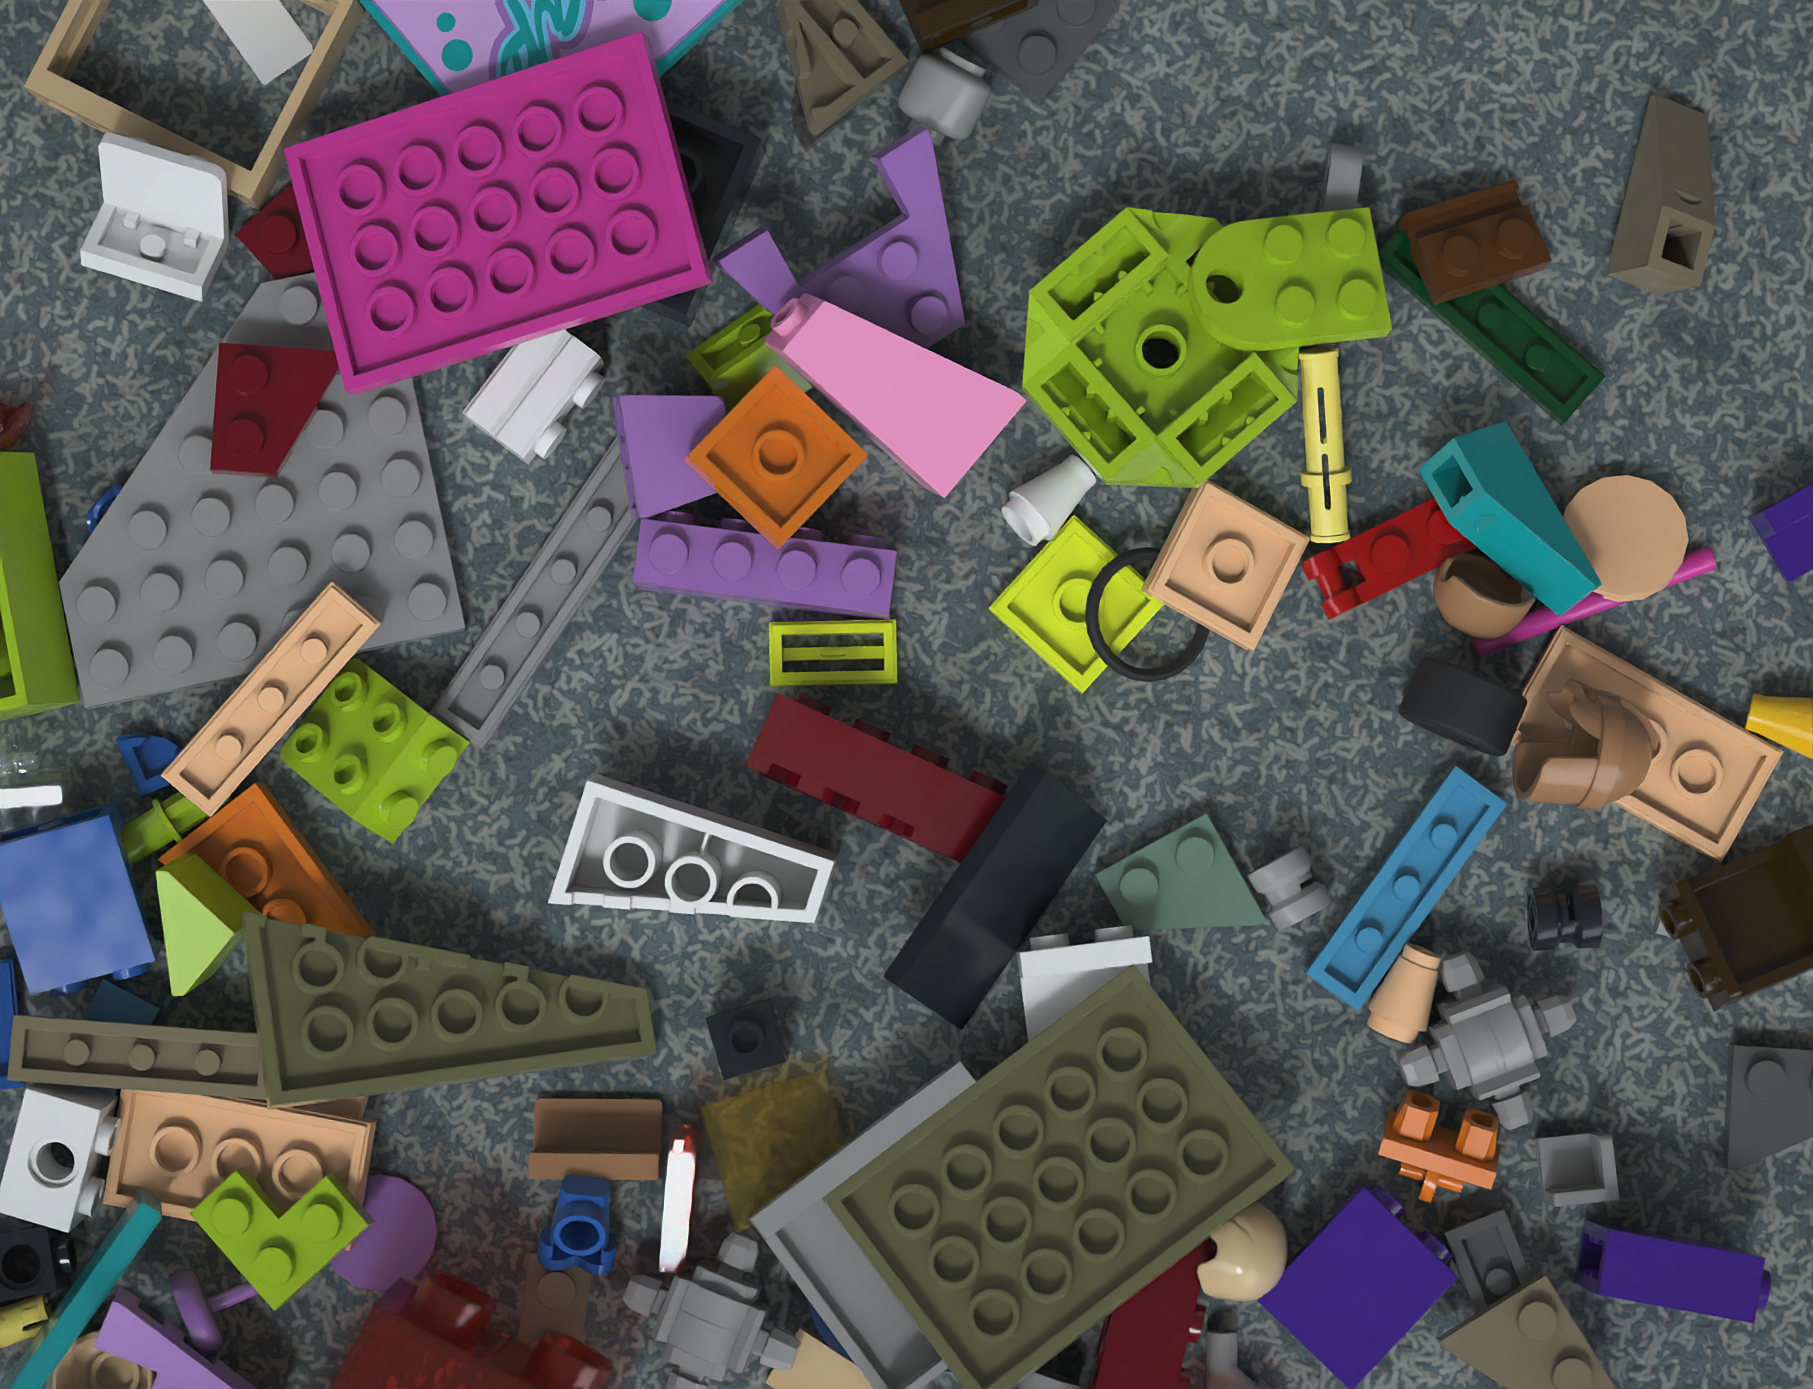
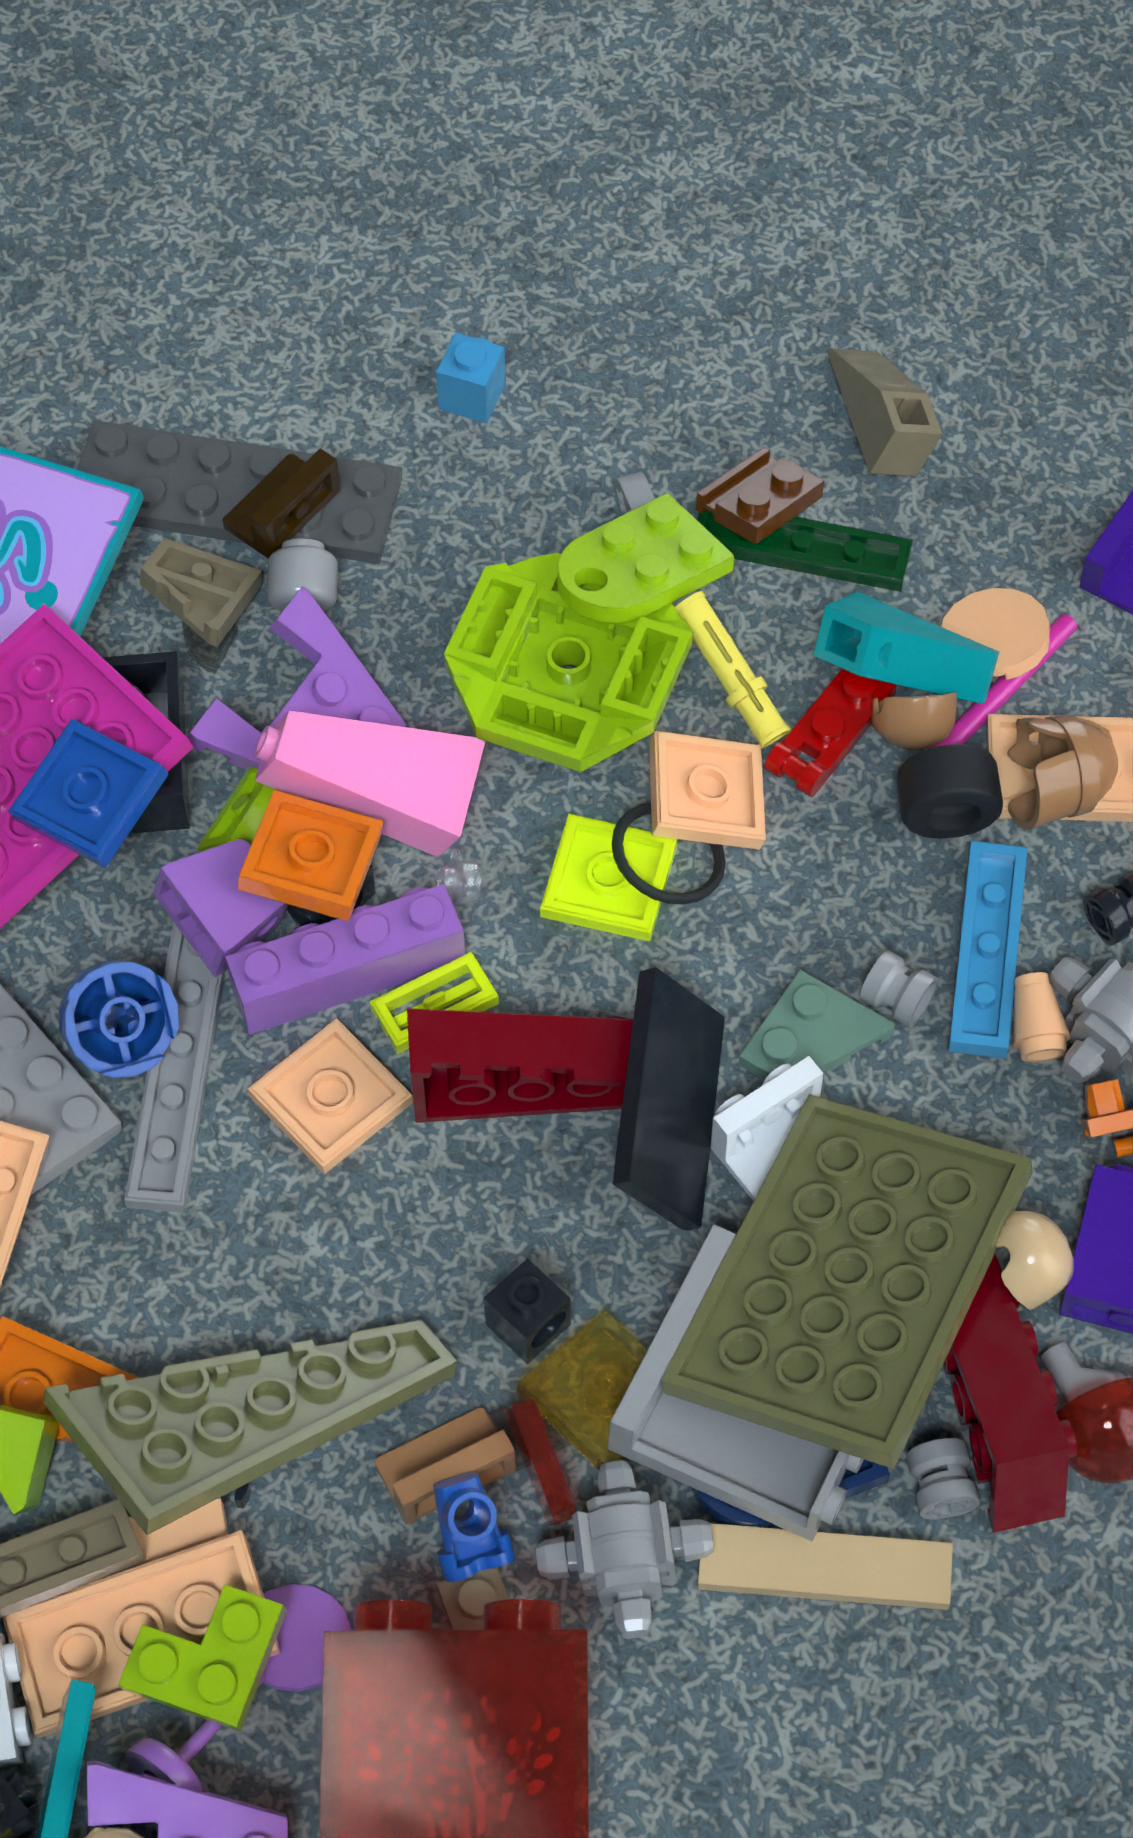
camera: 25 degrees left, 25 degrees down
(372, 750) = (94, 1245): lime bracket -> none
(507, 526) = (118, 1018): none -> blue cylinder
(535, 392) = (87, 918): white brick -> none
(580, 285) = (88, 793): none -> blue tile
(681, 701) = (330, 1096): none -> light nougat tile
(685, 860) = (400, 1195): white wedge -> none
(922, 537) = (461, 880): none -> clear plate
(1046, 501) = (541, 814): white cone -> none

